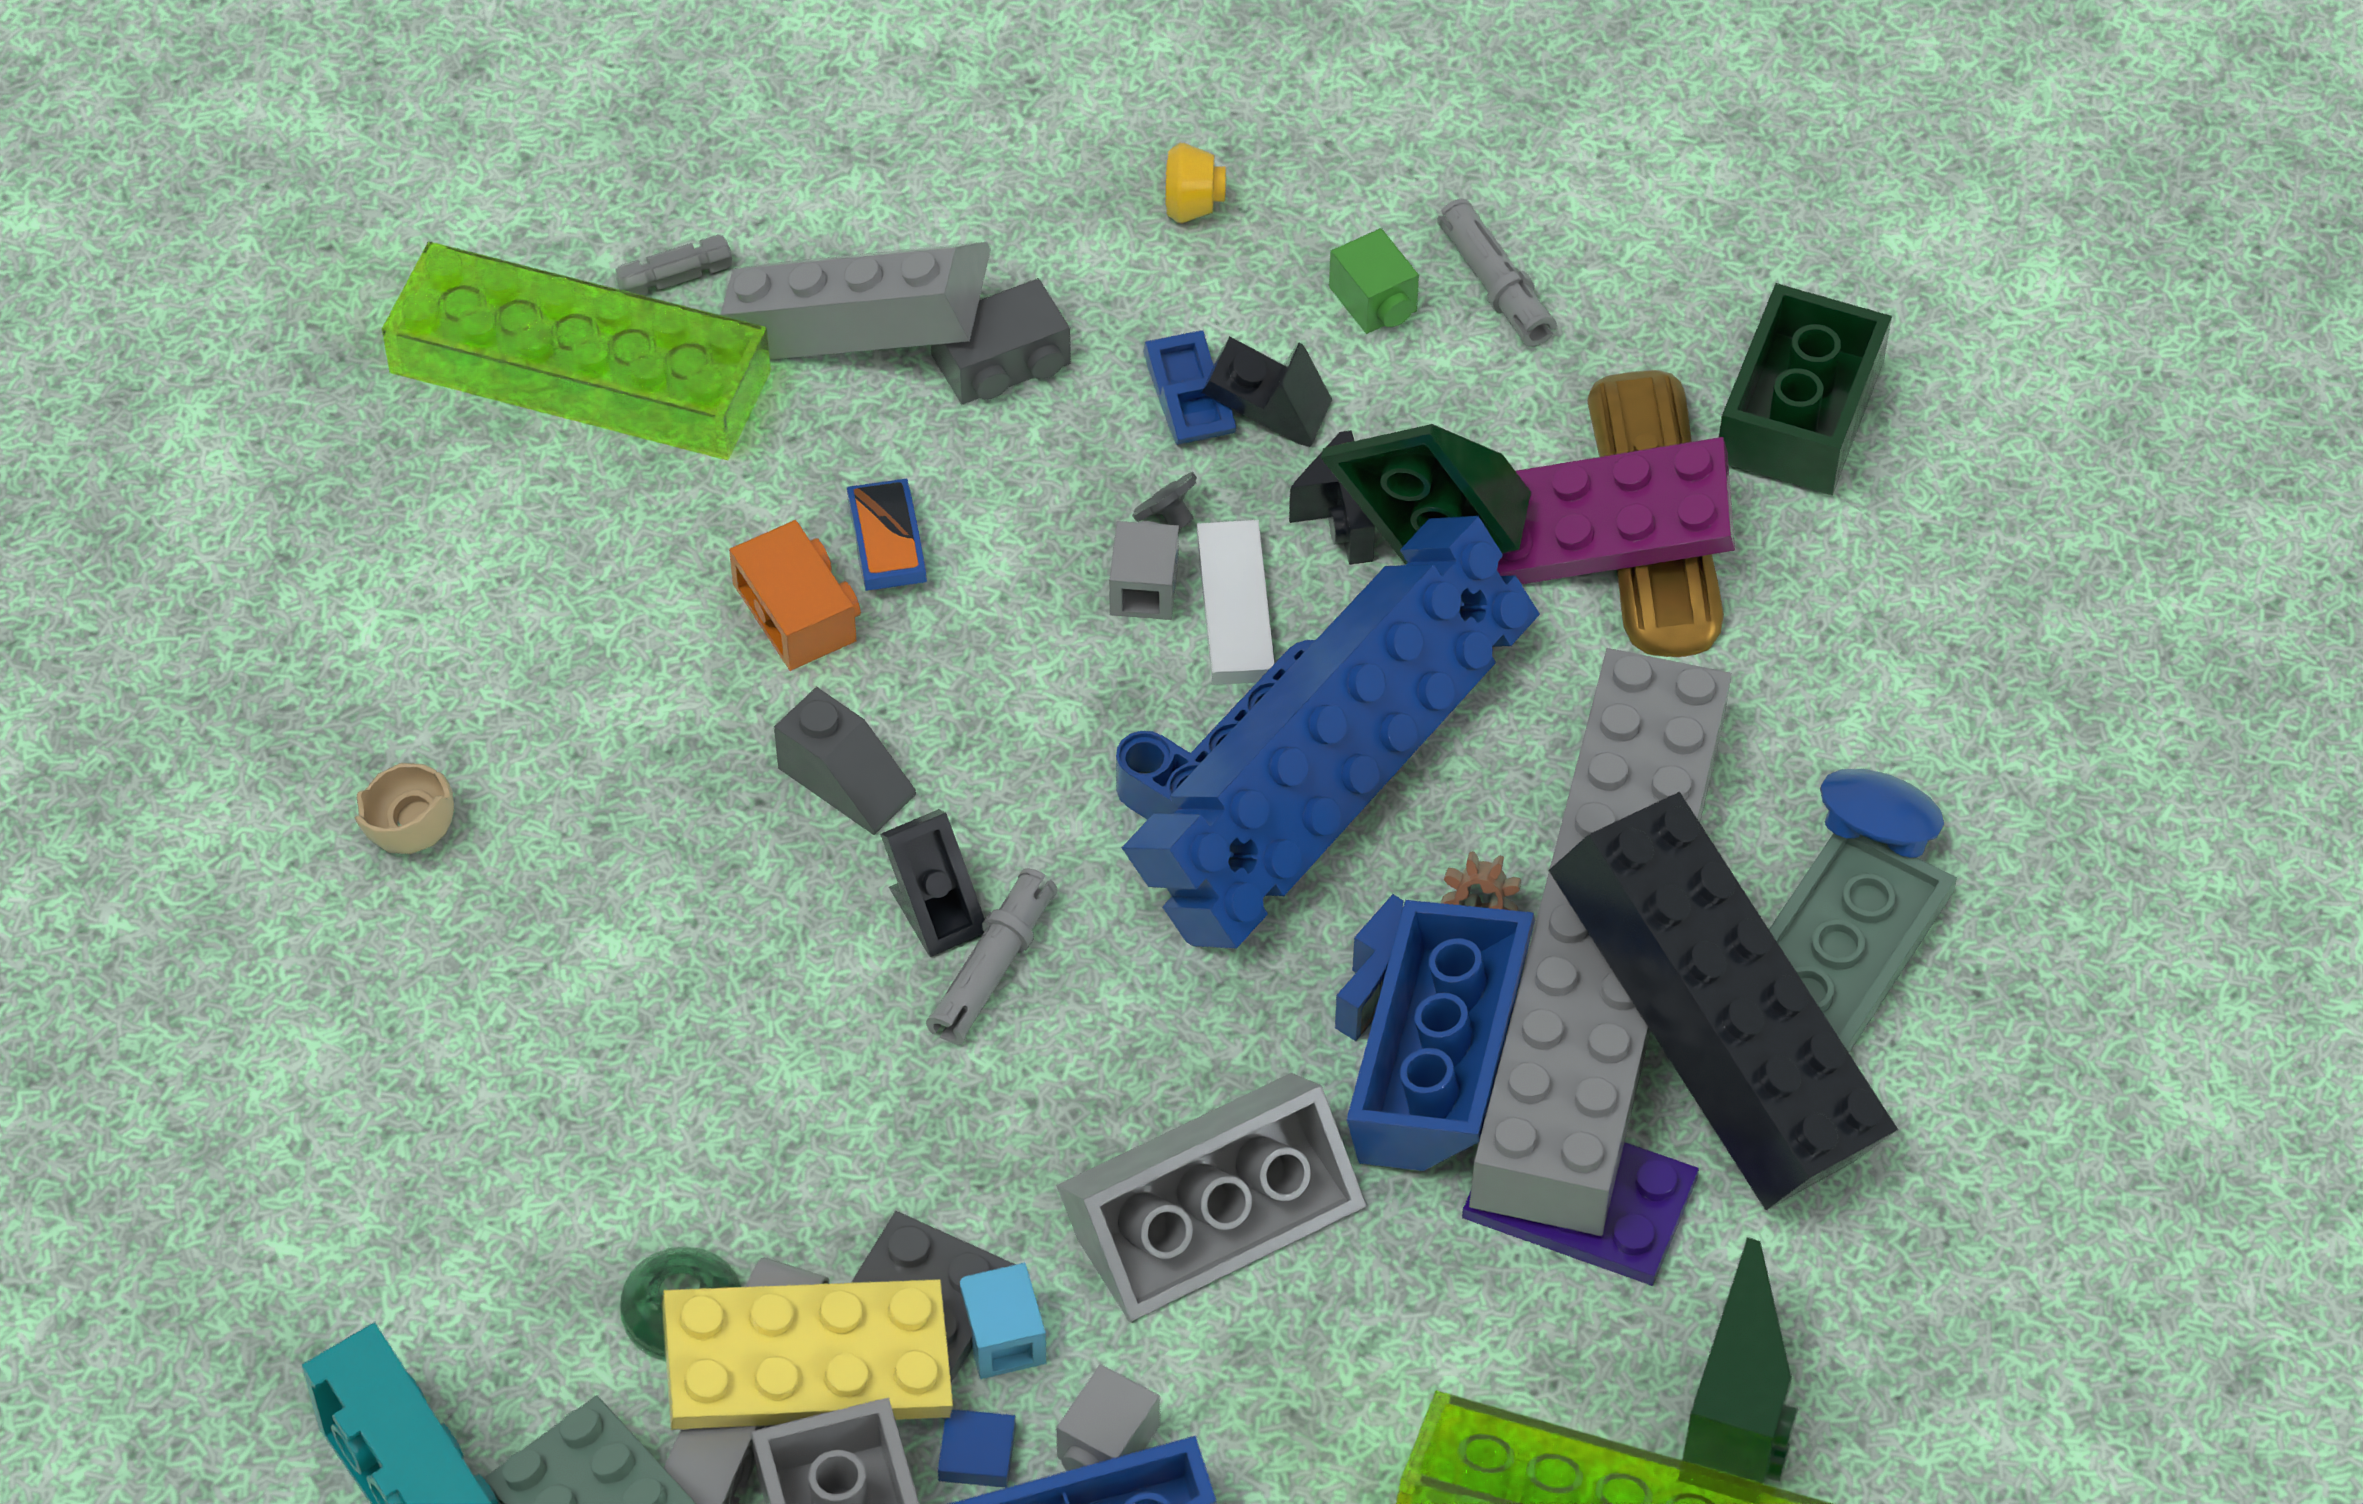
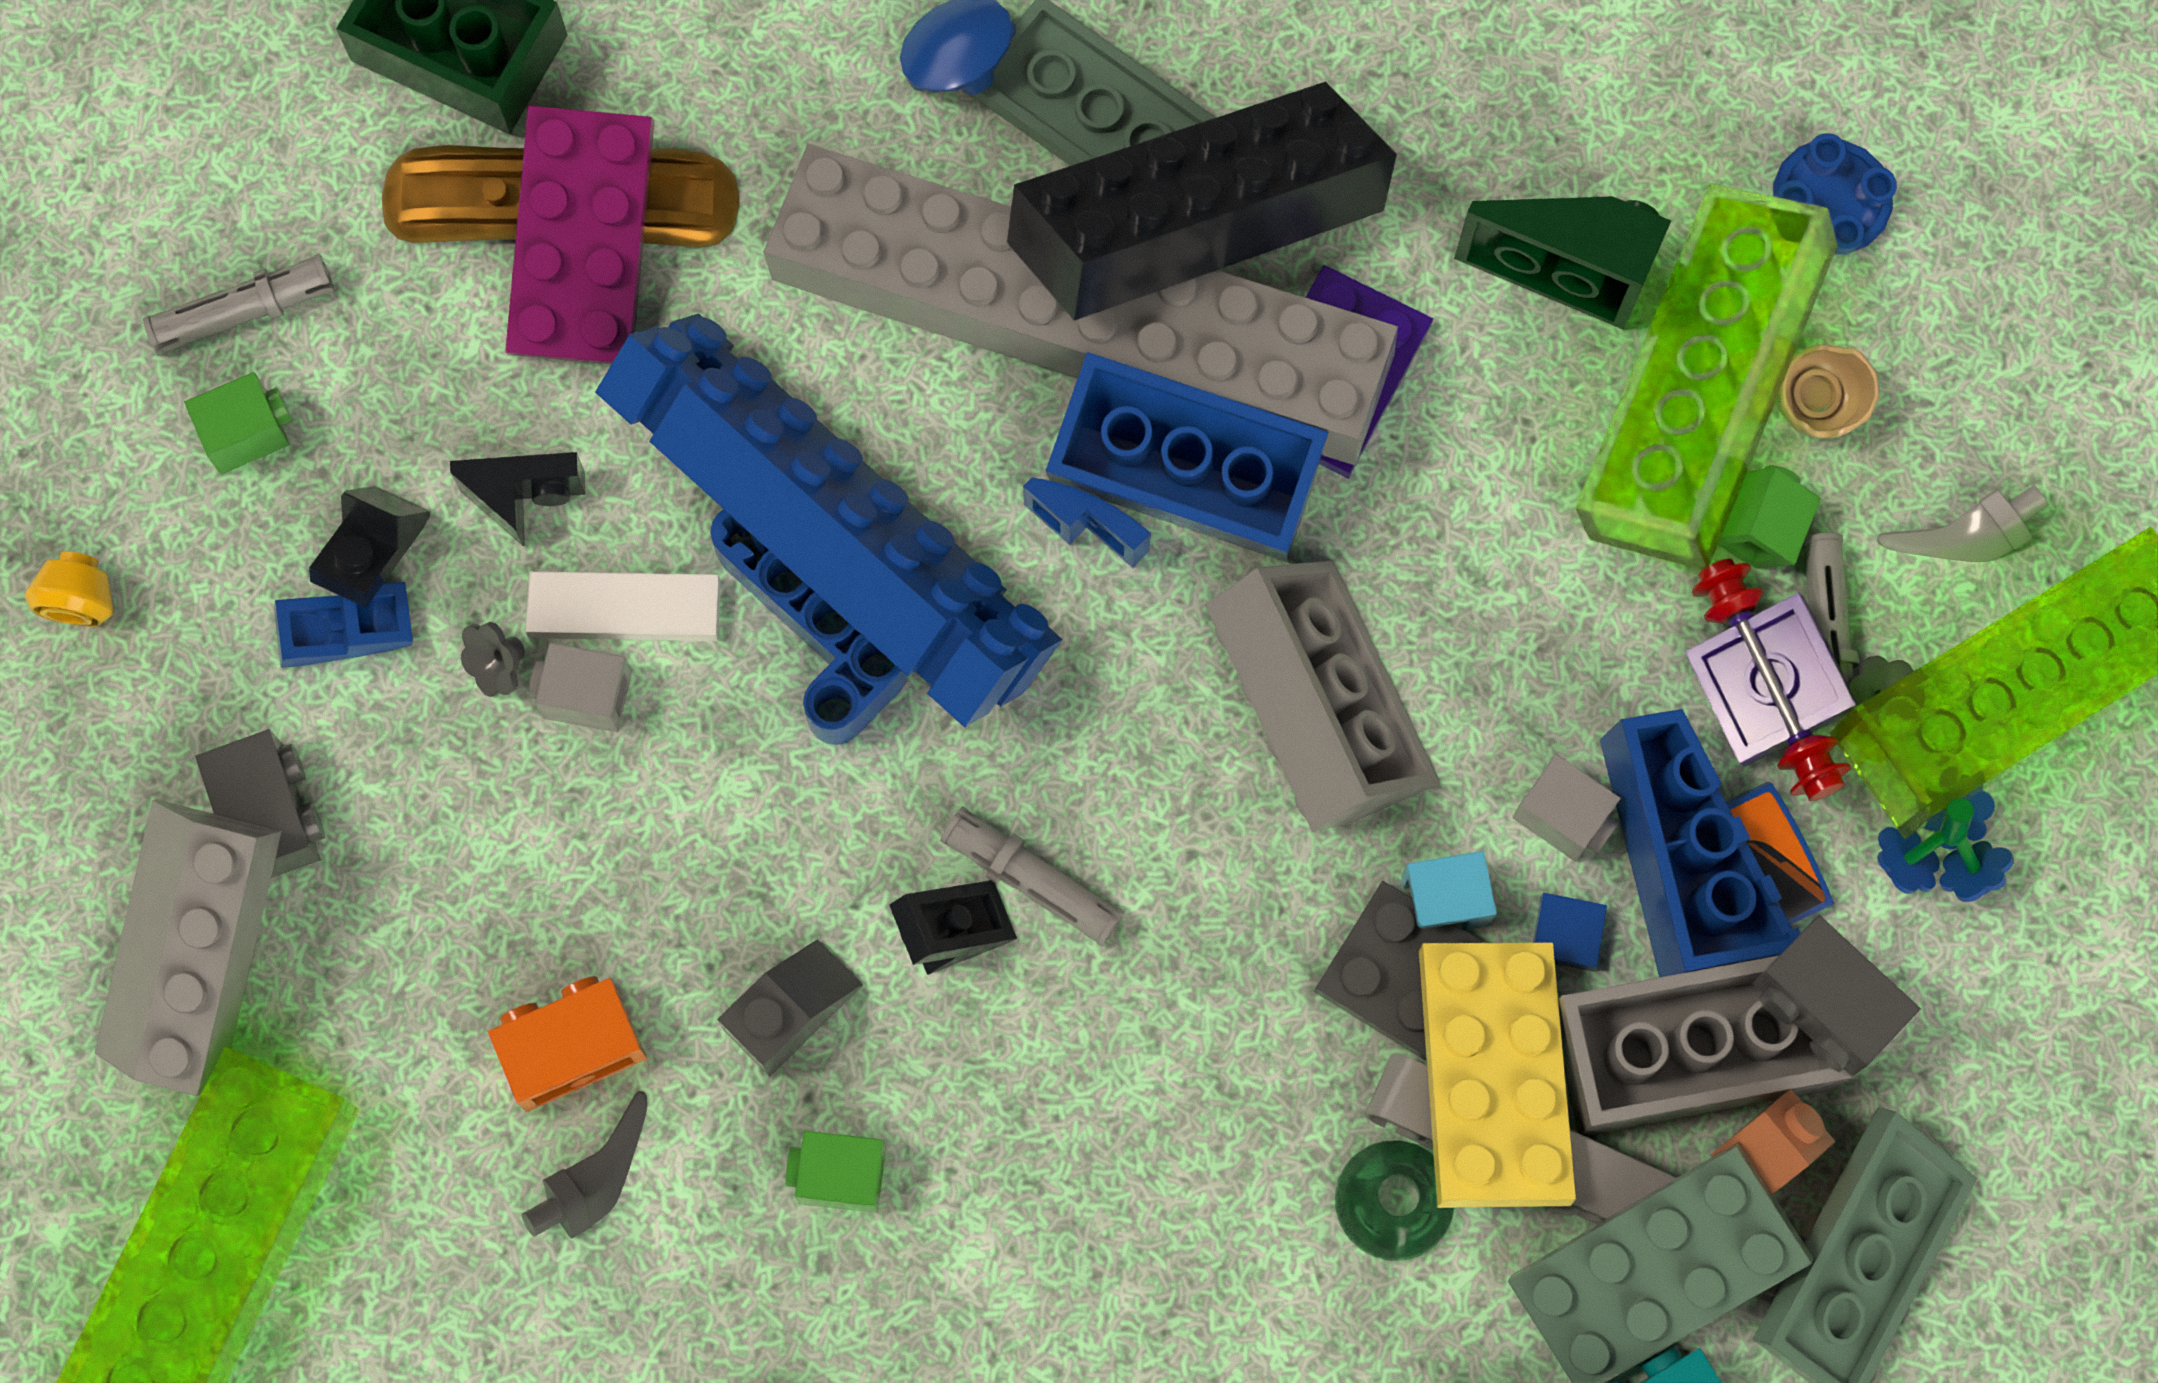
camera: 85 degrees left, 20 degrees up
(663, 636) = (591, 1187): none -> dark grey bar
(675, 266) = (85, 1154): light grey axle -> none
(682, 818) = (837, 1171): none -> bright green brick
(886, 534) = (494, 945): slope -> none
(1428, 475) = (562, 369): dark green slope -> none
(1489, 877) = (1015, 411): nougat gear -> none

